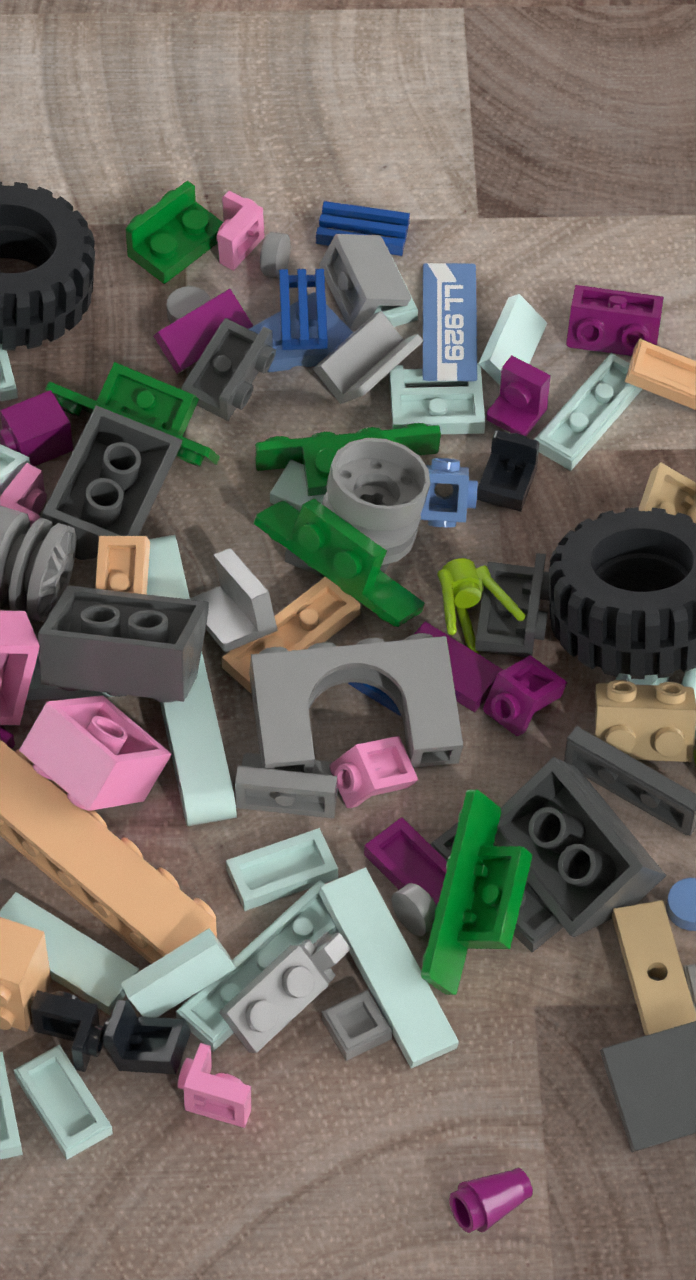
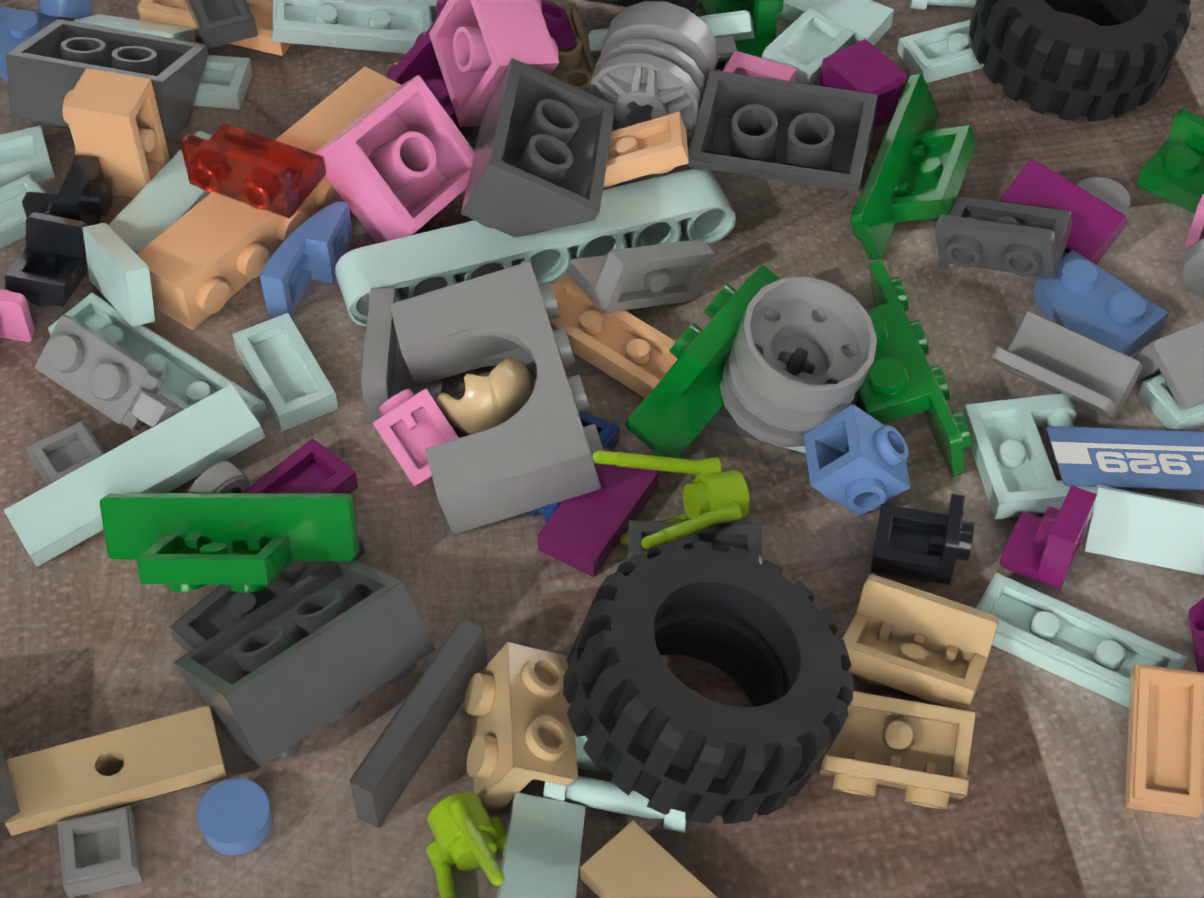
camera: 85 degrees right, 5 degrees down
(101, 851) = (252, 169): none -> clear red bracket
(159, 833) = (306, 255): none -> medium blue slope
(301, 282) = (1115, 281): blue tile -> none
(351, 716) = (489, 398): none -> tan hair
(522, 692) = (556, 583): magenta bracket -> none
(595, 485) = (919, 643): none -> tan bracket

